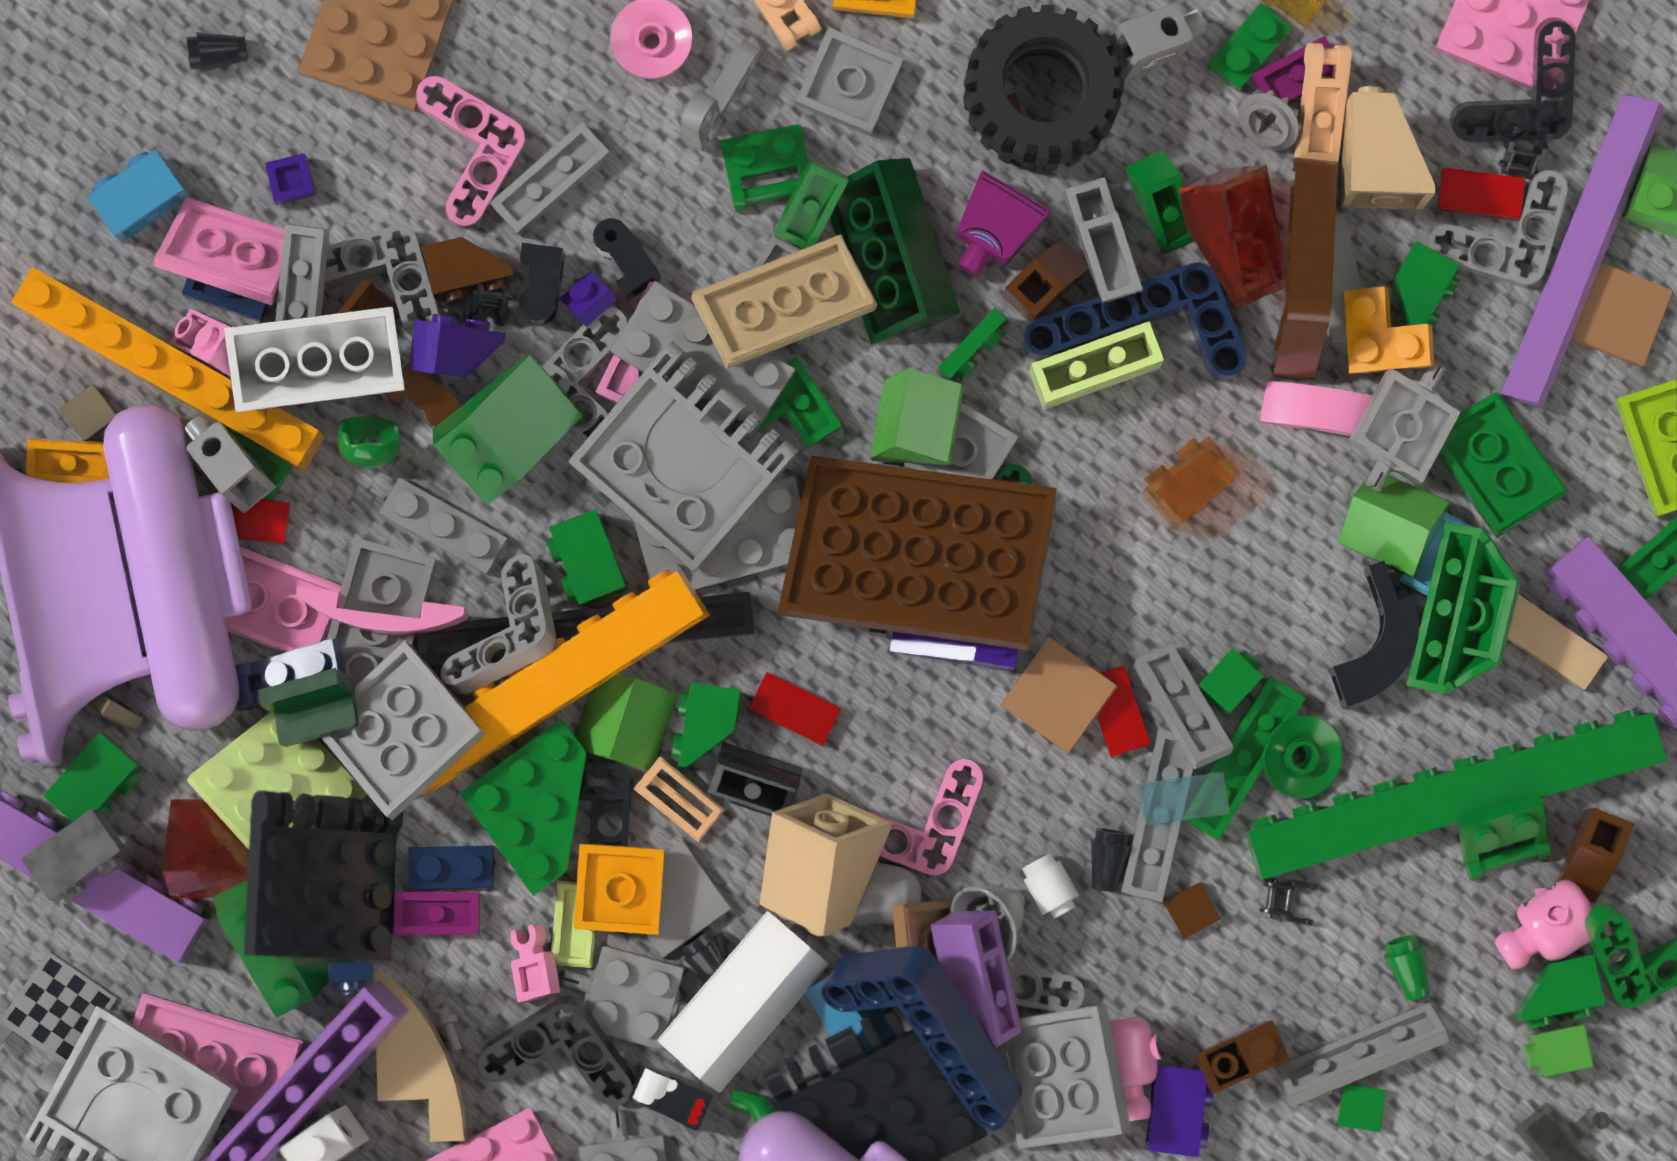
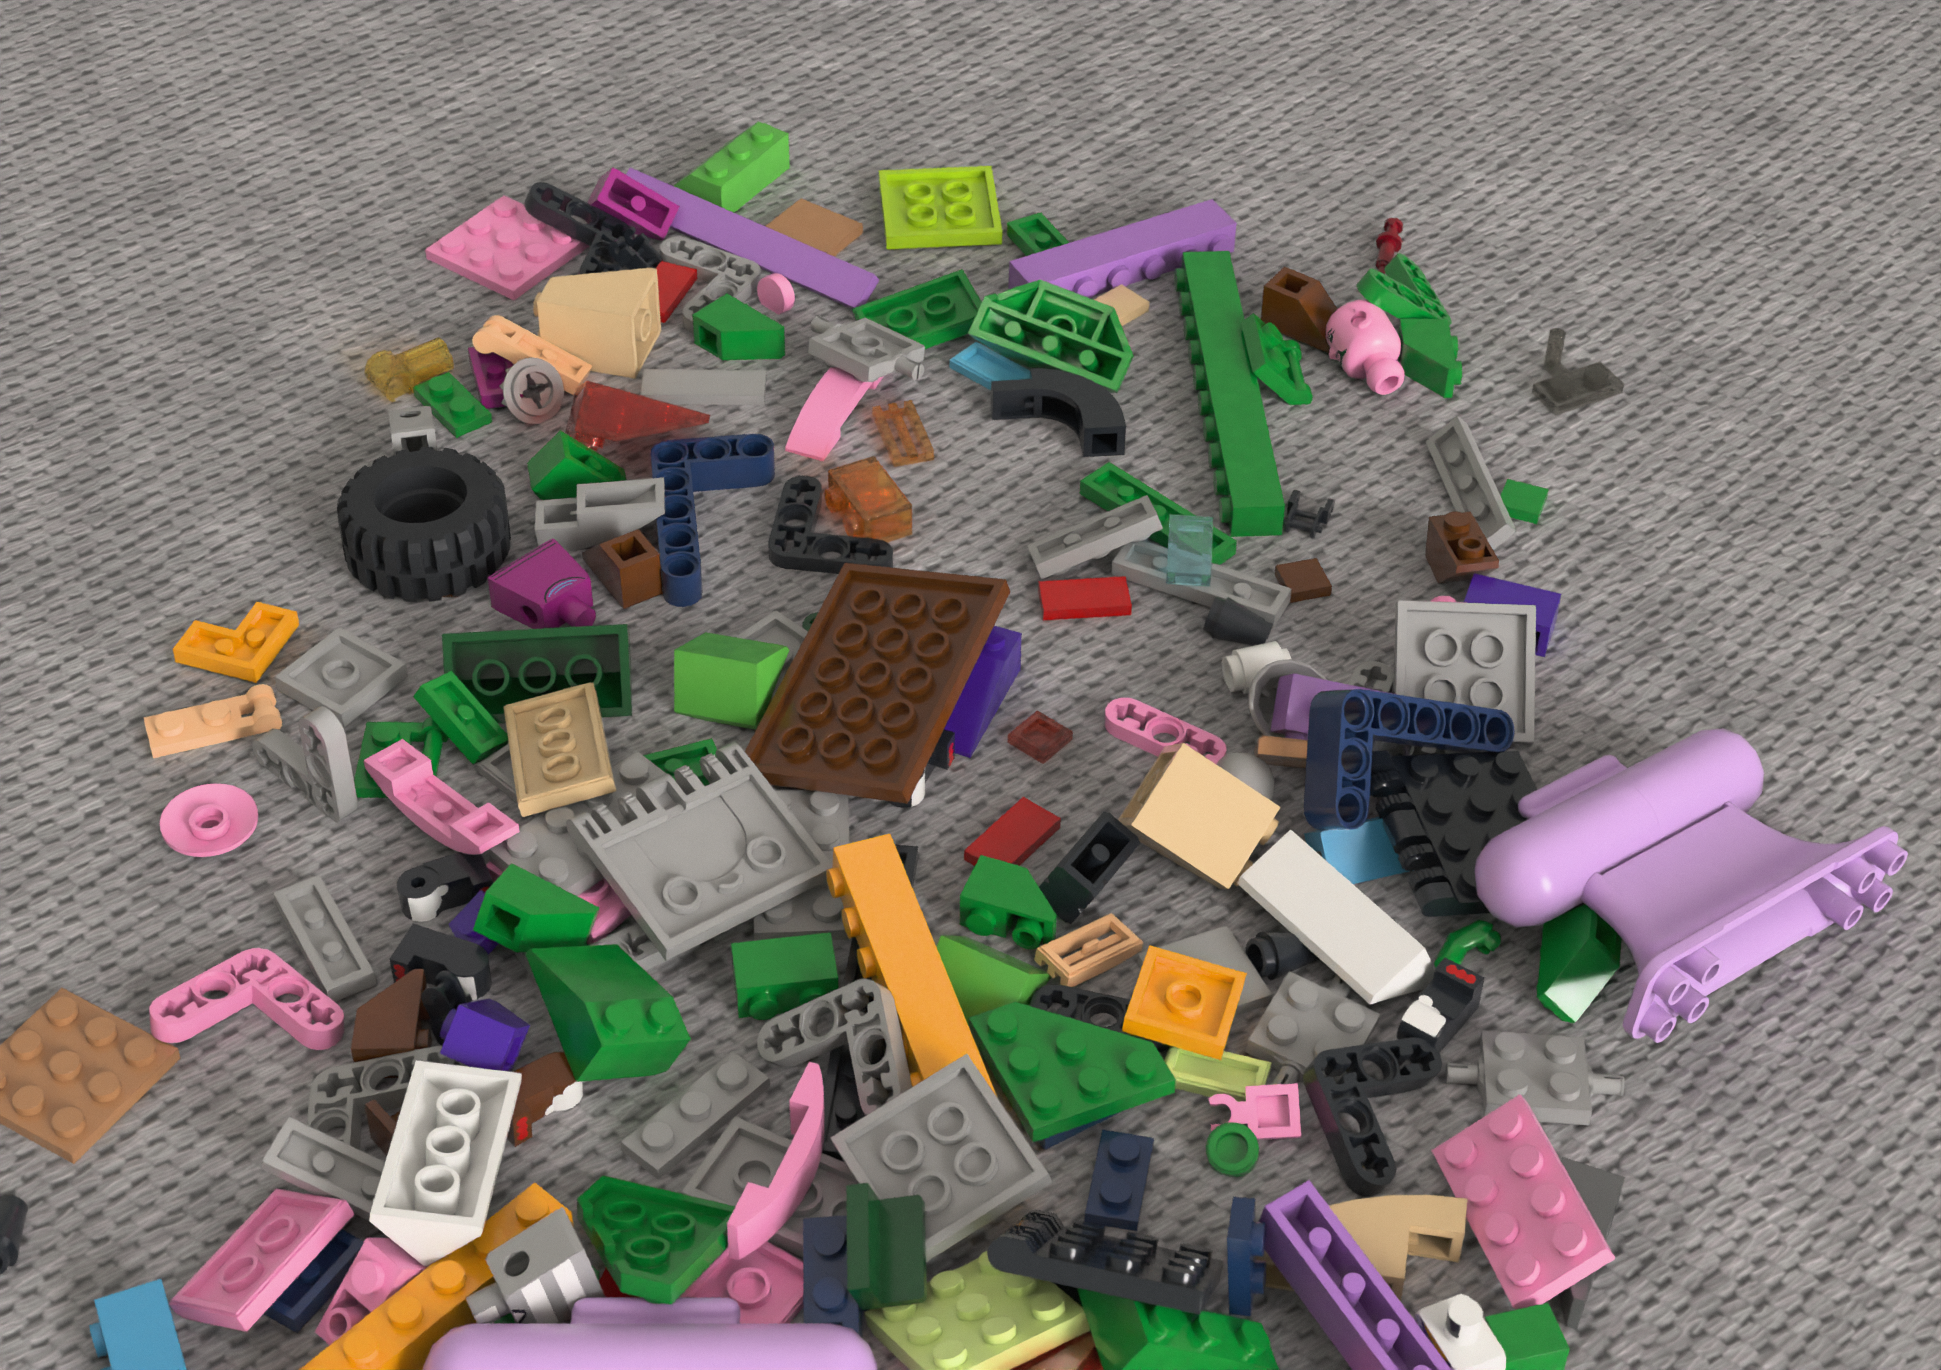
camera: 80 degrees left, 40 degrees down
(290, 179) = (201, 1185): dark purple plate -> none
(299, 532) = (652, 1236): none -> green plate
(355, 430) = (569, 1158): green hair -> none
(436, 913) = (1175, 1196): magenta plate -> none
(494, 950) = (1232, 1149): none -> green tile
(580, 339) = (533, 913): none -> green slope
(696, 224) = (433, 805): none -> bright pink slope
(925, 707) = (1040, 737): none -> clear red tile
(985, 334) = (662, 622): green plate -> none
(1059, 695) = (1059, 628): medium nougat tile -> none
(1096, 365) = (726, 539): yellowish green brick -> none
(1127, 444) = (810, 545): none -> black beam
(1231, 680) = (1074, 502): green brick -> none
(1283, 505) = (918, 429): none -> clear orange tile
(1308, 269) = (717, 356): reddish brown beam -> none
(1319, 759) = (1166, 473): green dish -> none
(1374, 343) = (777, 360): light orange plate -> none
(1393, 524) = (956, 383): bright green slope -> none
(1408, 965) = (1387, 444): green cone -> none
(1497, 309) = (776, 293): none -> bright pink tile
(1558, 1051) = (1485, 364): bright green brick -> none
(1594, 122) = (633, 204): none -> magenta slope

